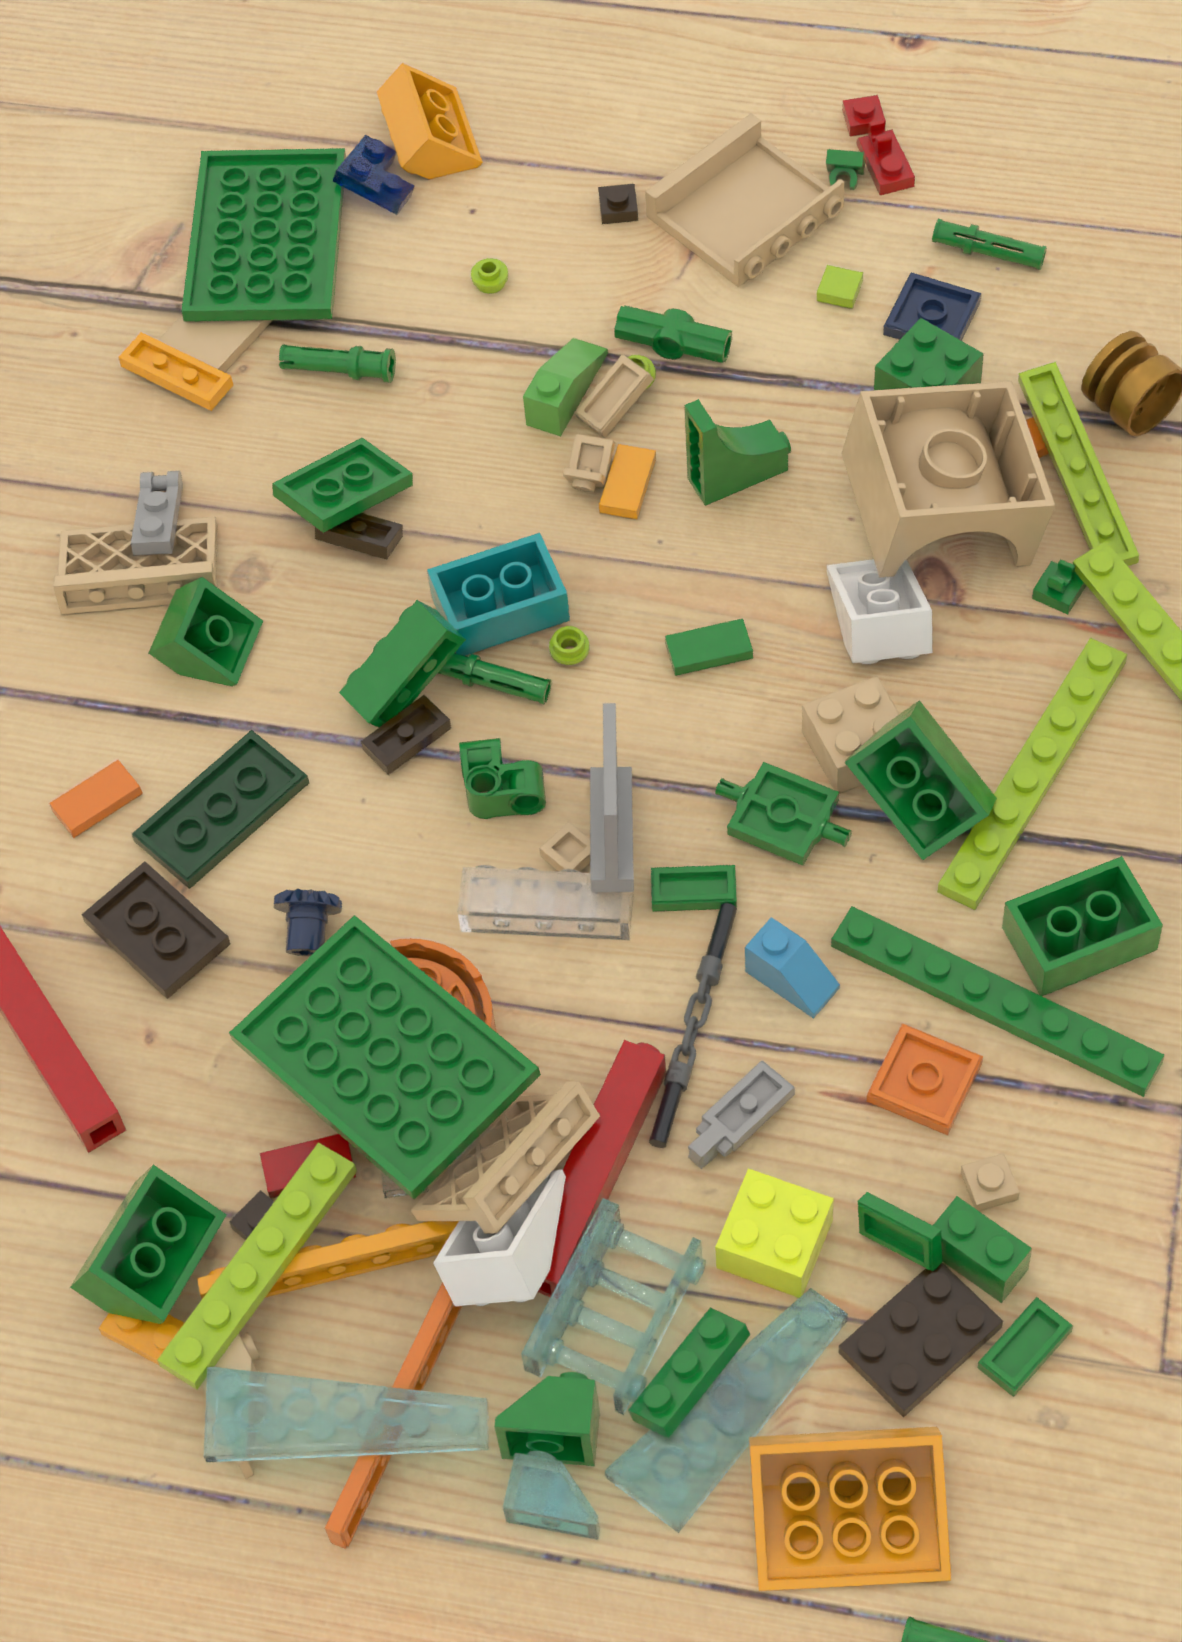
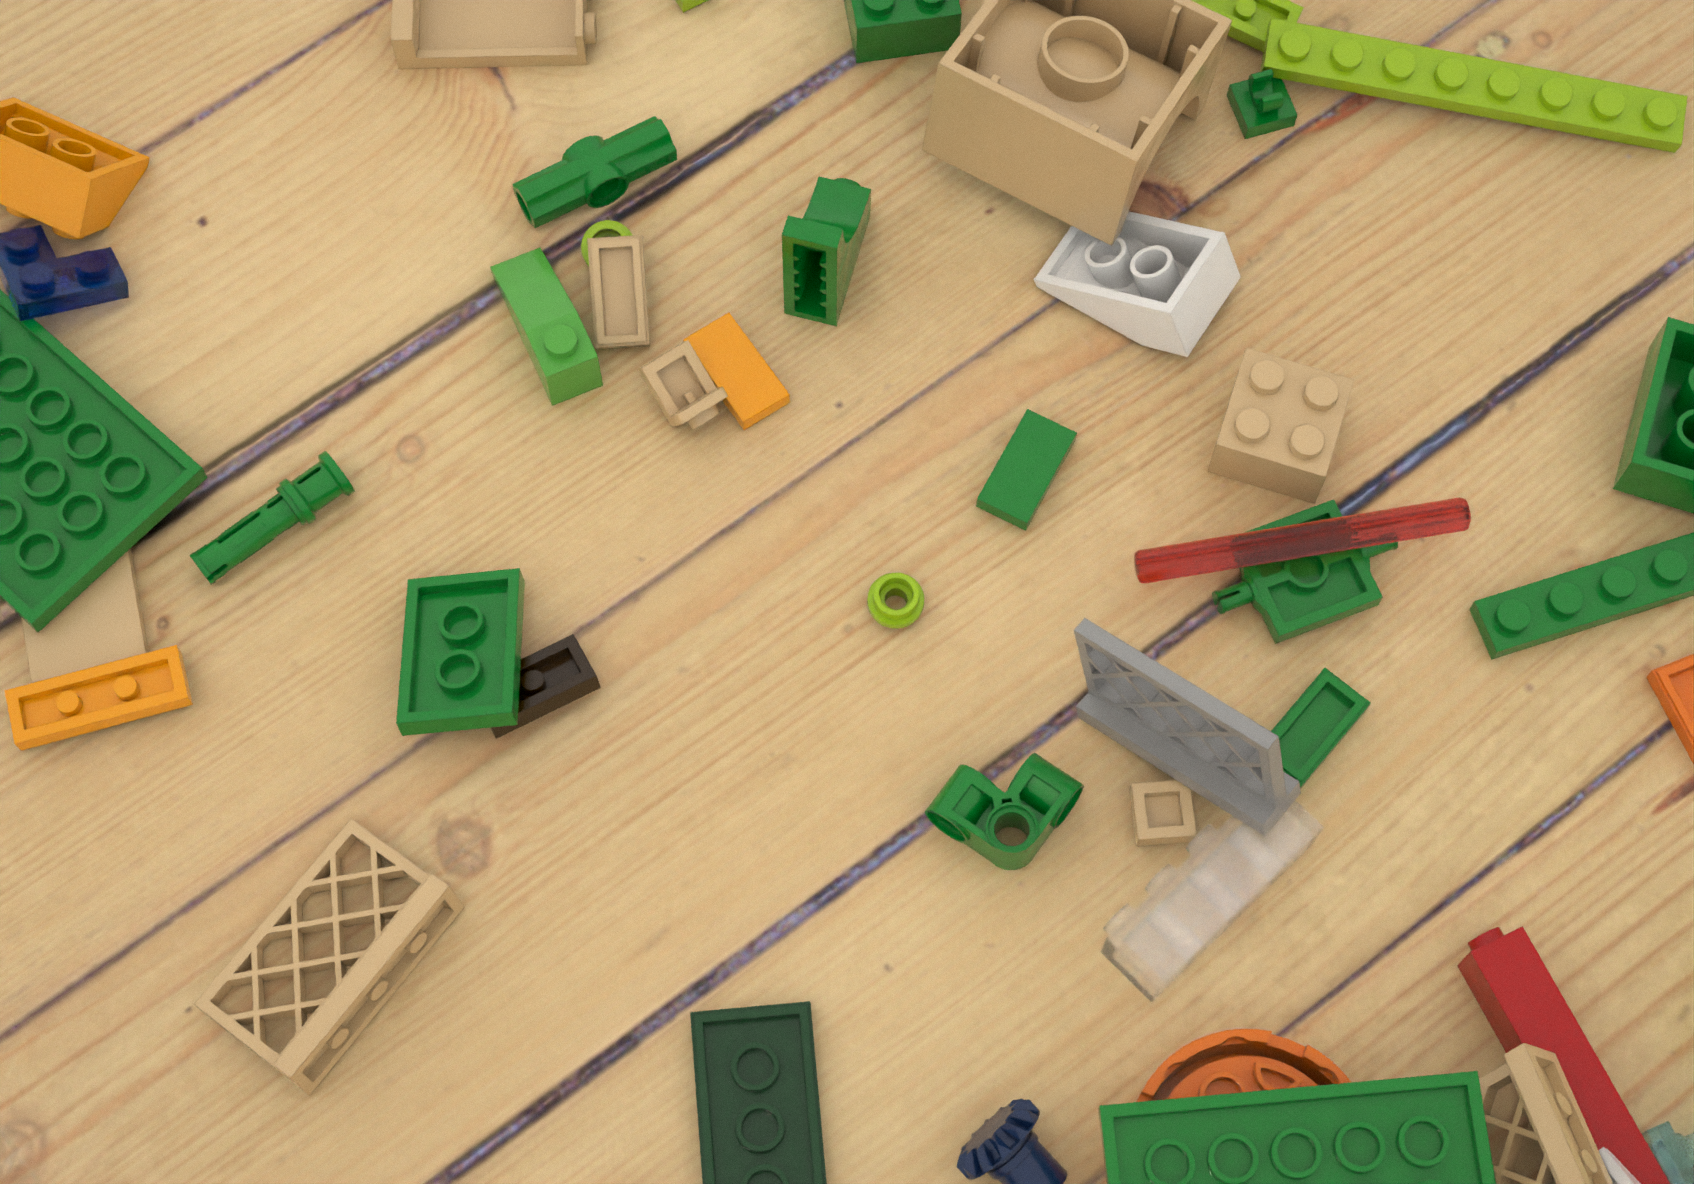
camera: 55 degrees left, 10 degrees up
(157, 513) = (288, 879): light grey plate -> none
(206, 634) = (513, 960): green slope -> none
(402, 664) = (782, 788): green brick -> none
(406, 734) = (856, 855): dark brown plate -> none
(489, 275) = (320, 288): lime plate -> none
(500, 593) = (775, 615): teal brick -> none
(507, 680) = (848, 714): green pin -> none
(618, 203) = (356, 79): dark brown plate -> none
(679, 1073) = (1430, 802): piece -> none
(740, 1113) = (1632, 910): light grey hinge -> none
(790, 968) = (1498, 720): dark azure slope -> none
(793, 790) = (1302, 540): none -> clear red axle
(921, 780) = (1412, 414): green slope -> none
(1032, 773) = (1459, 314): lime plate -> none

